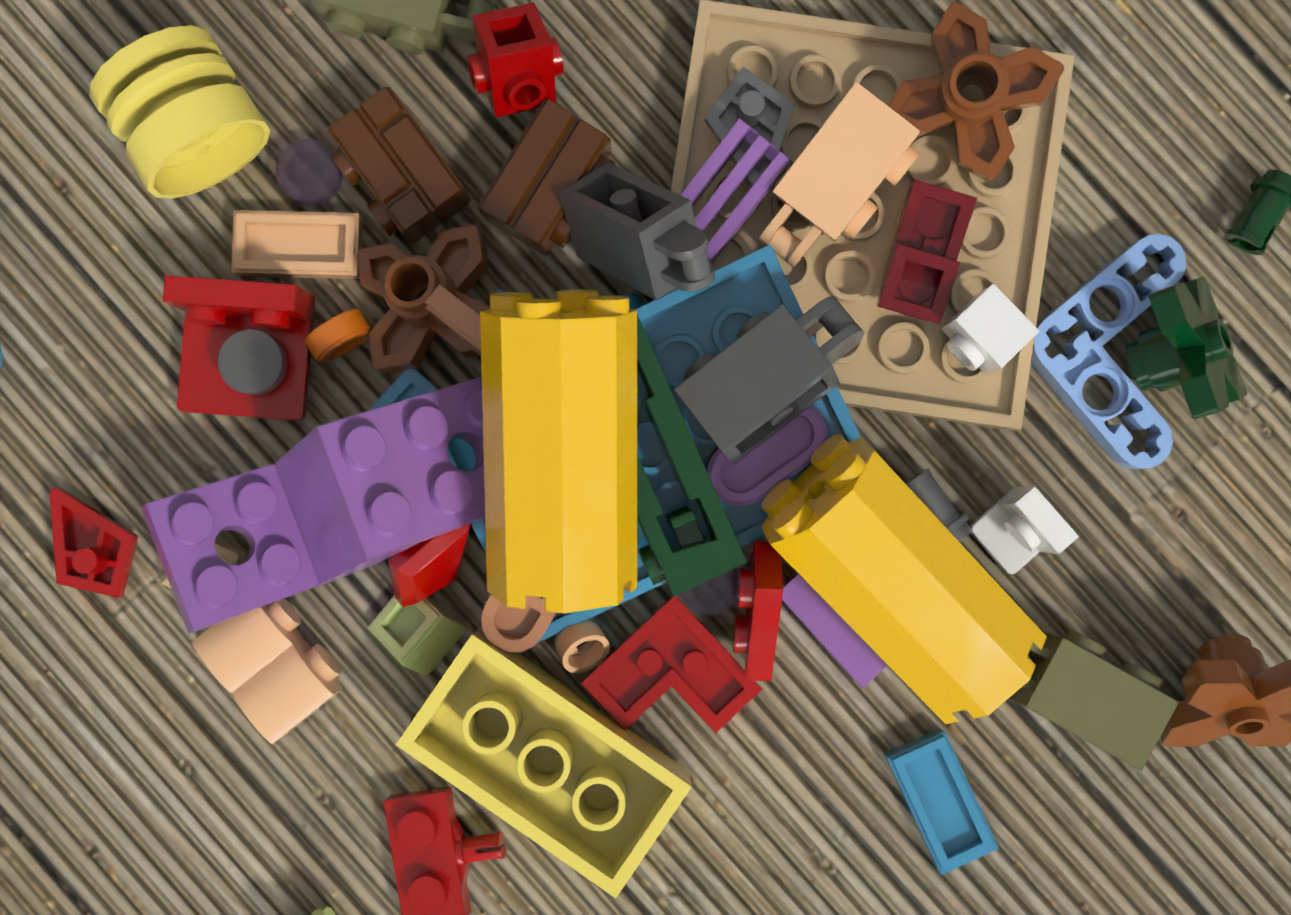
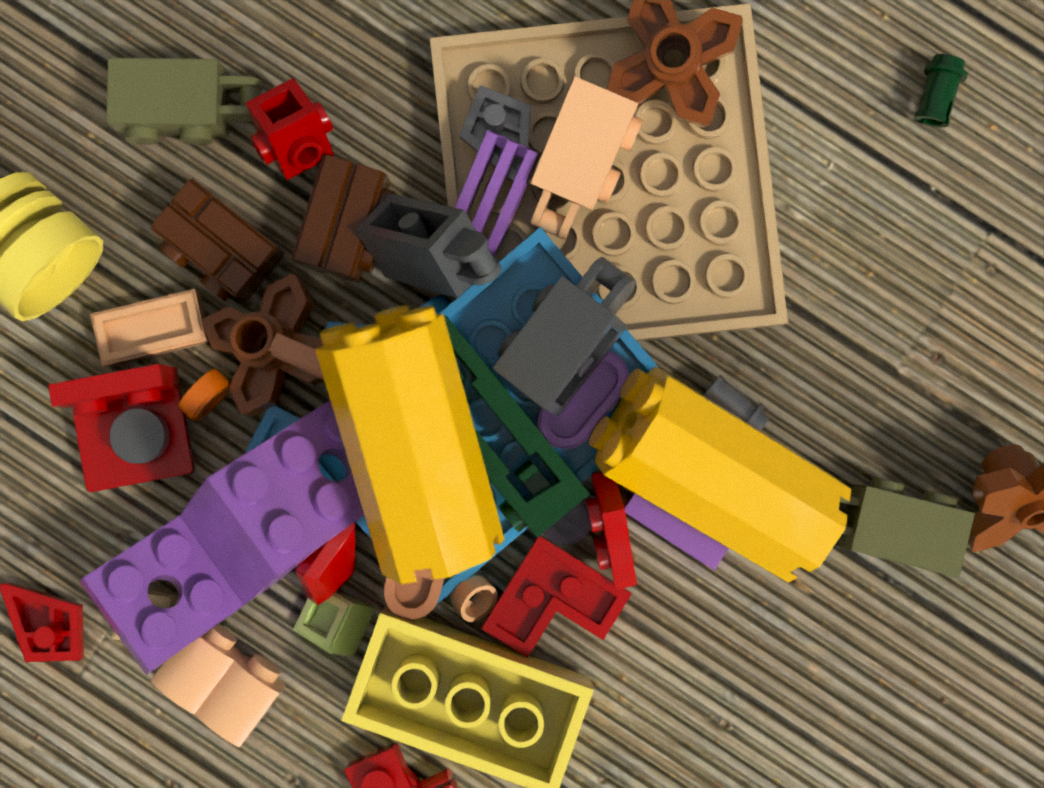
camera: 15 degrees left, 0 degrees up
(308, 173) = (144, 266): clear purple tile -> none
(926, 251) = (670, 198): dark red slope -> none
(941, 801) = (803, 646): dark azure tile -> none
(988, 331) = (738, 250): white plate -> none
(1021, 528) = (809, 405): white bracket -> none
(1089, 358) = (828, 249): light blue beam -> none
(1187, 350) = (907, 222): dark green plant -> none

